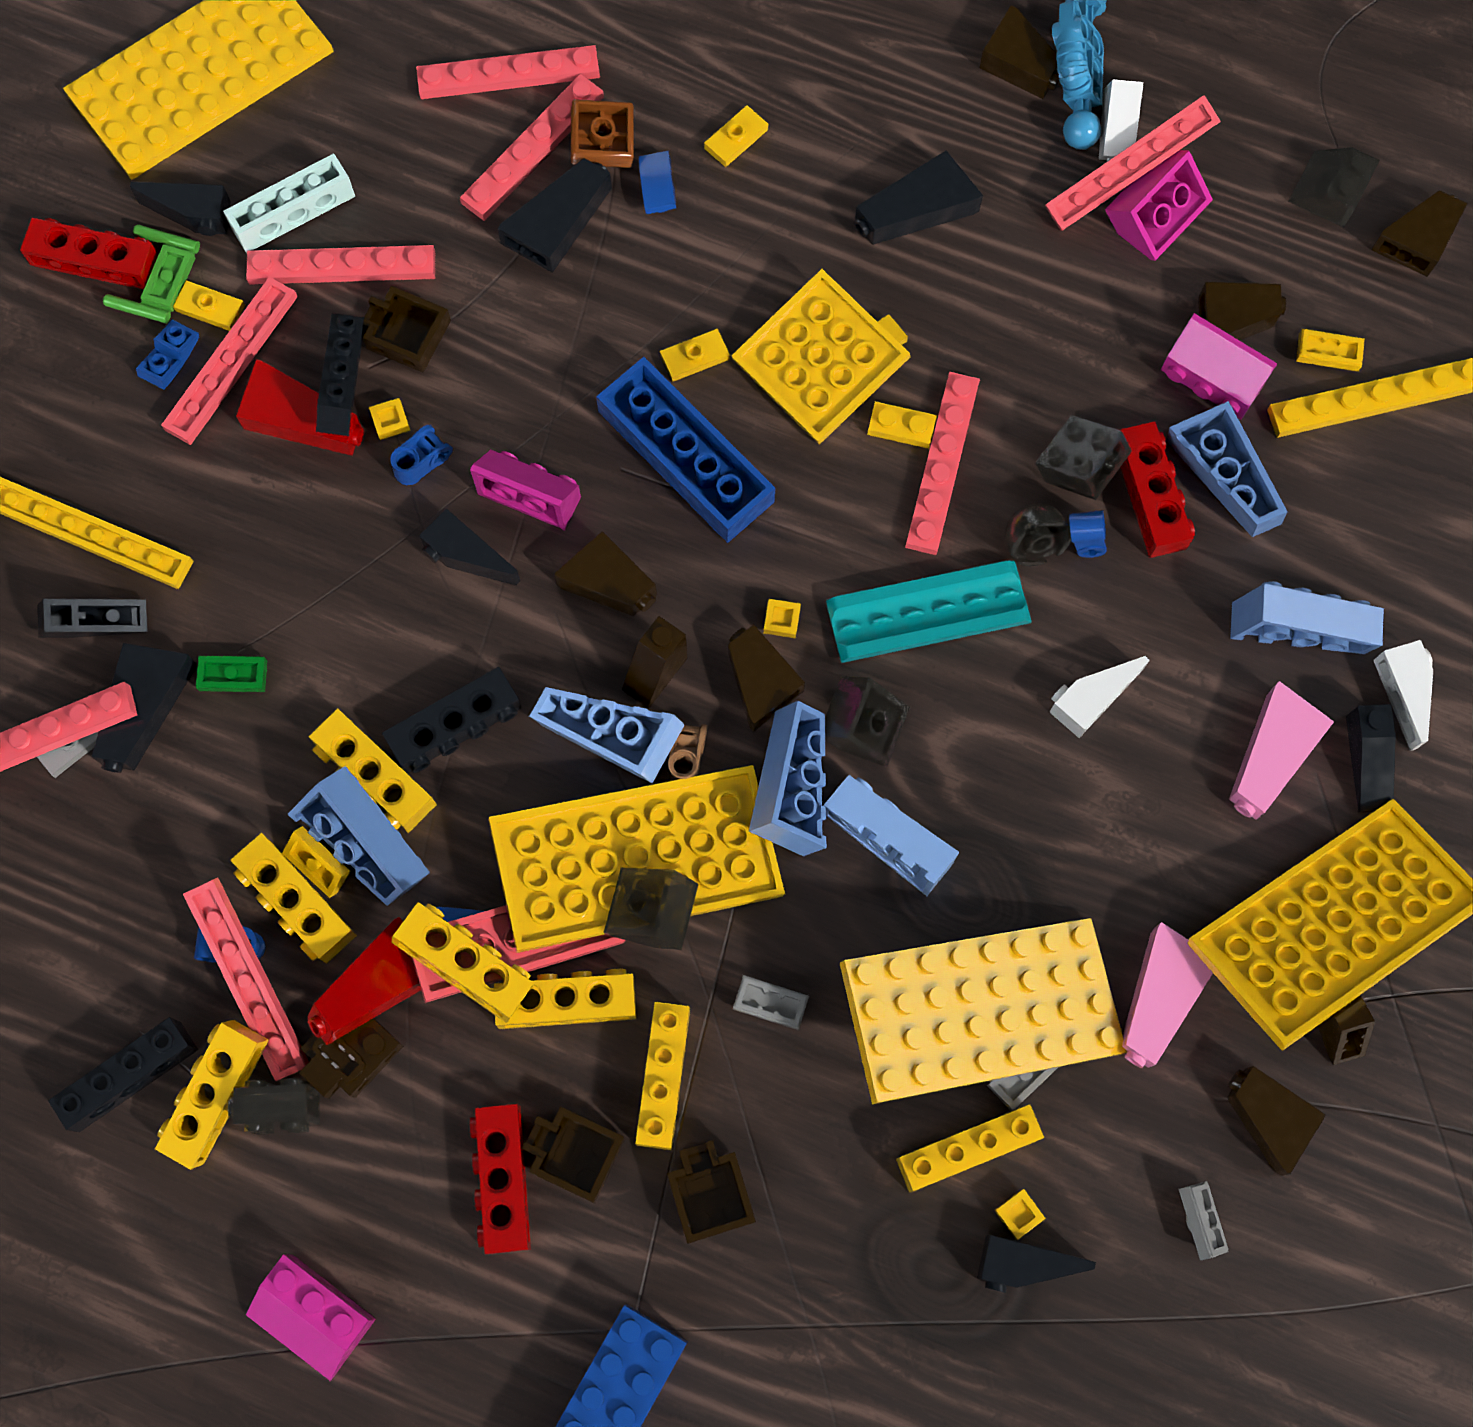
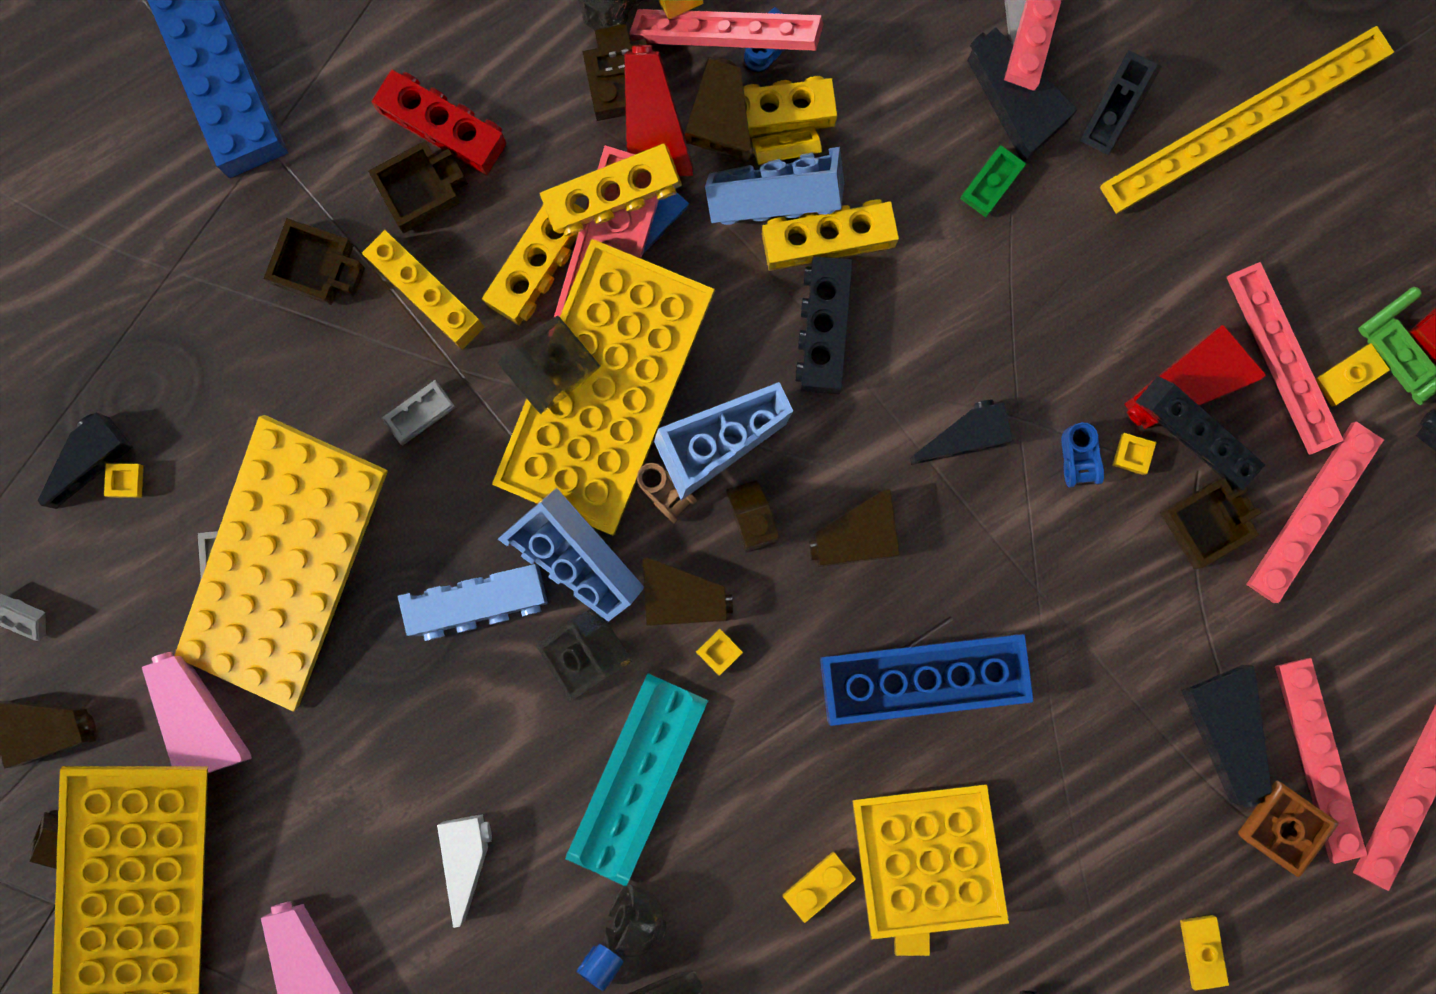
camera: 130 degrees right, 10 degrees up
(170, 353) = (1327, 314): blue slope -> none
(289, 203) = (1405, 503): light aqua brick -> none
(325, 925) = (719, 112): none -> dark brown slope
(526, 487) = (988, 523): dark pink slope -> none
(657, 182) = (1204, 843): blue slope -> none
(694, 355) = (1012, 755): yellow plate -> none
(942, 463) = (760, 896): coral plate -> none
(969, 1148) = (195, 478): yellow brick -> none

